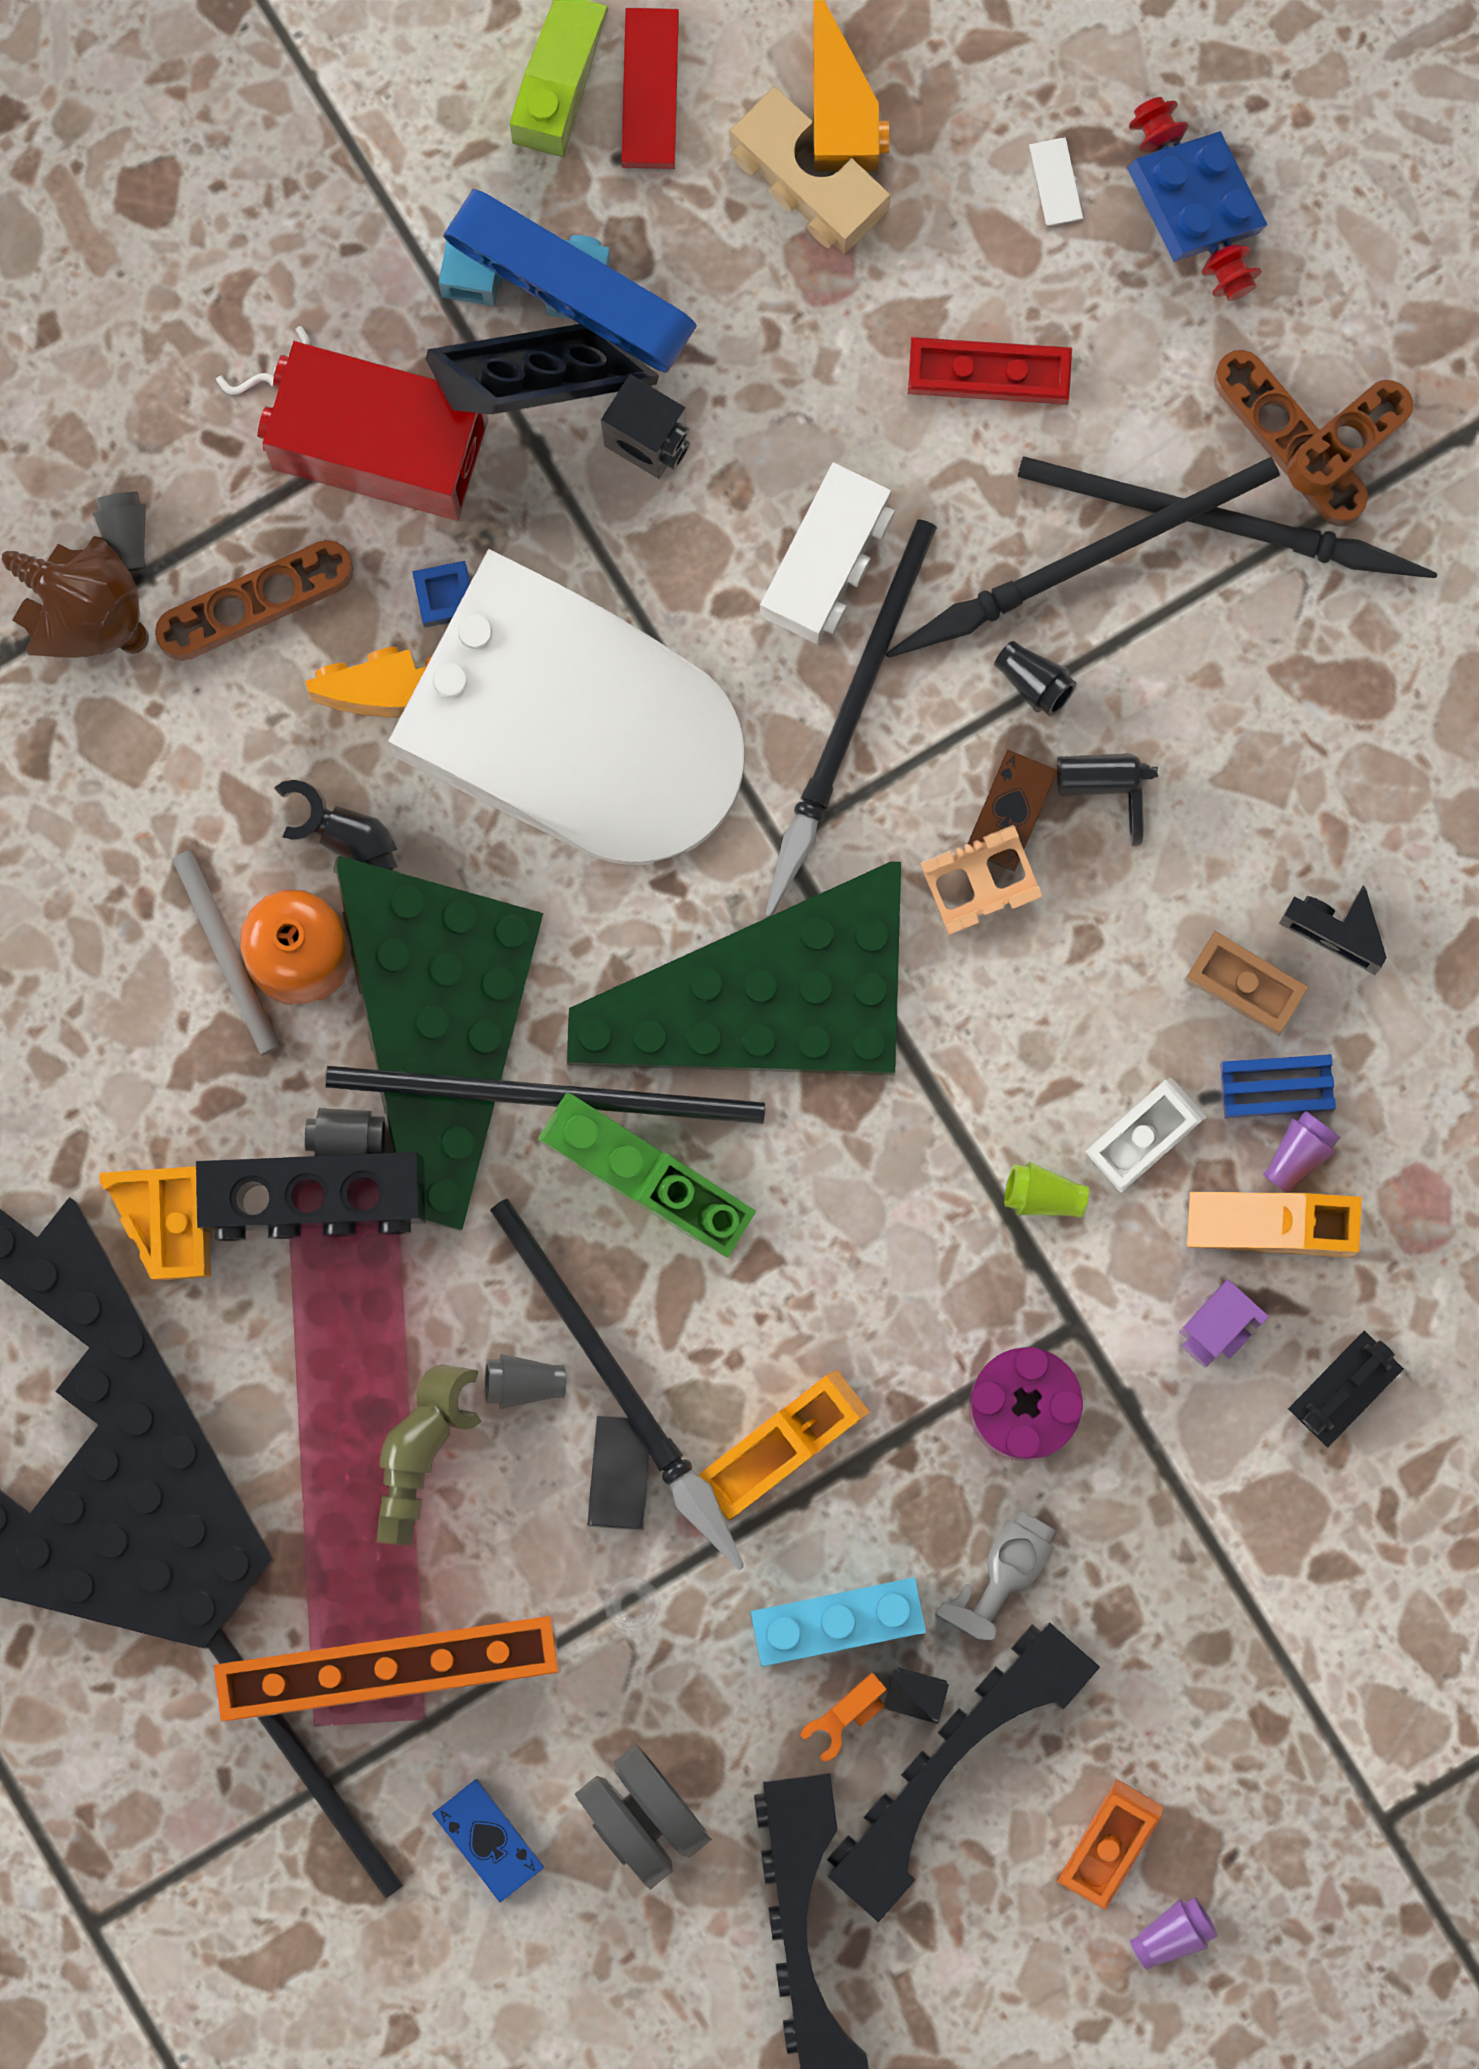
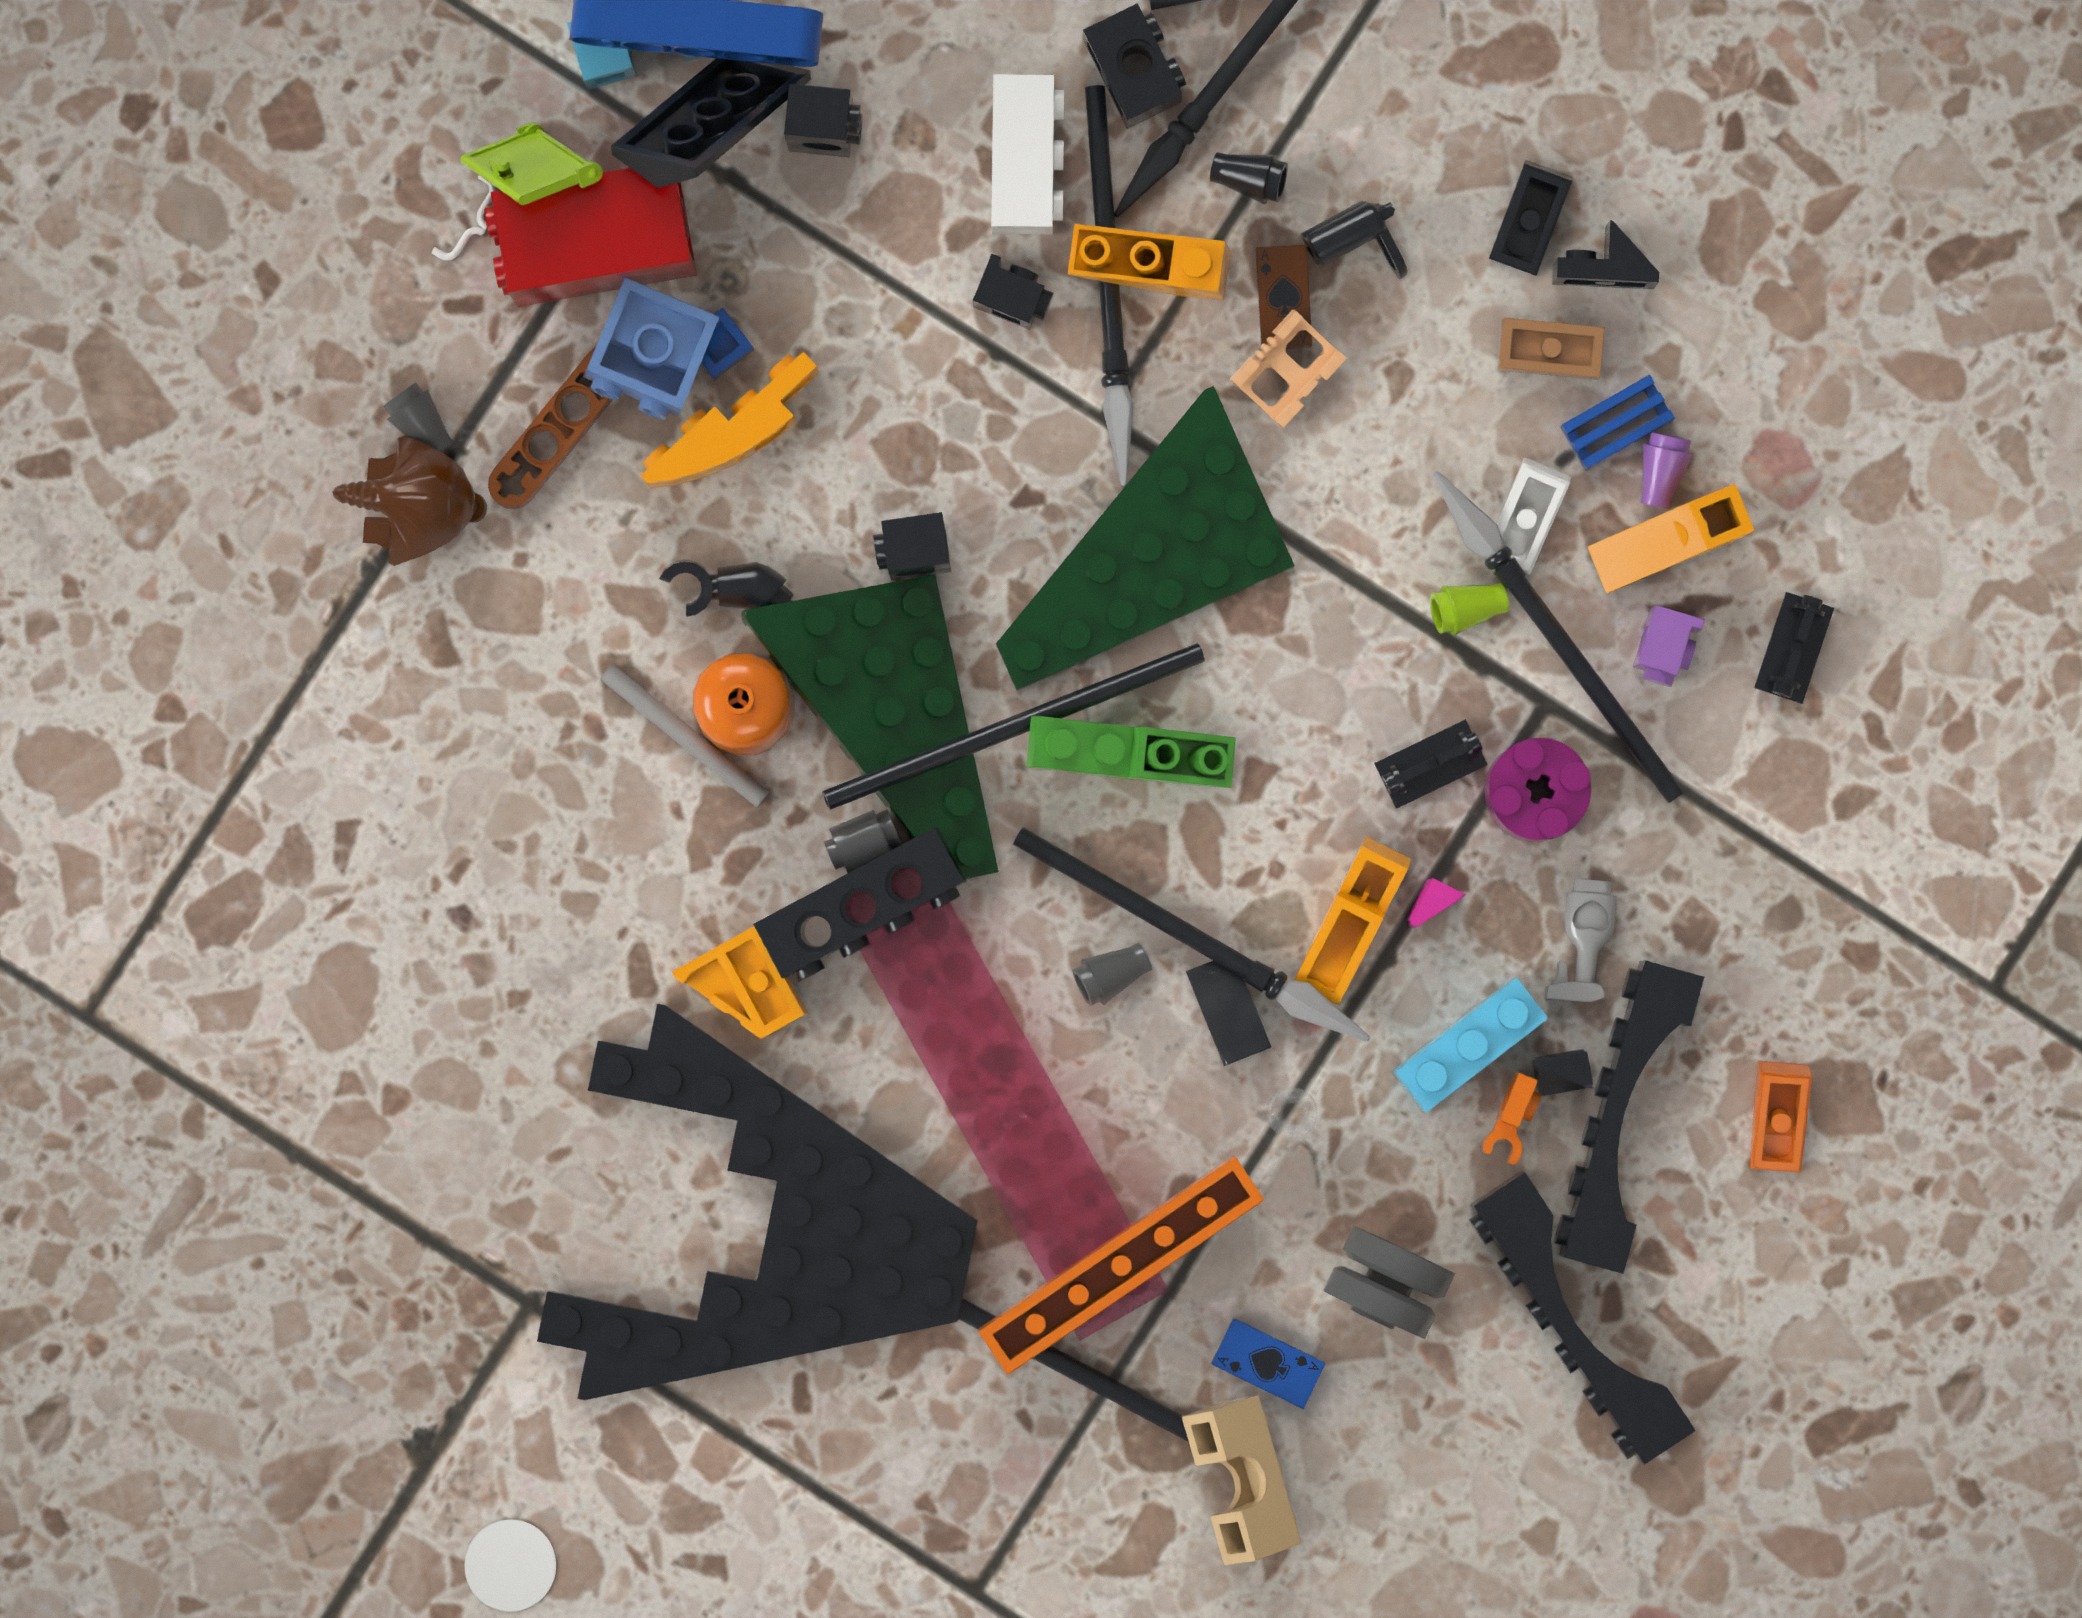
camera: 25 degrees left, 5 degrees up
(347, 336) = (531, 165): none -> lime door
(374, 565) = (650, 349): none -> medium blue plate
(406, 1985) = (1260, 1513): none -> tan arch
(414, 1444) = (1049, 1069): olive piece -> none
(533, 874) = (913, 546): none -> black brick
(573, 721) = (882, 400): white windscreen -> none
(749, 680) = (1012, 294): none -> black brick
(870, 1463) = (1432, 900): none -> dark pink slope
(899, 713) = (1151, 261): none -> light orange slope
(934, 1329) = (1431, 763): none -> black hinge
(966, 487) = (1134, 95): none -> black brick
(1092, 1135) = (1484, 538): none -> black piece
(1174, 1934) = (1868, 1164): medium lavender cone -> none
(1288, 848) = (1531, 217): none -> black slope

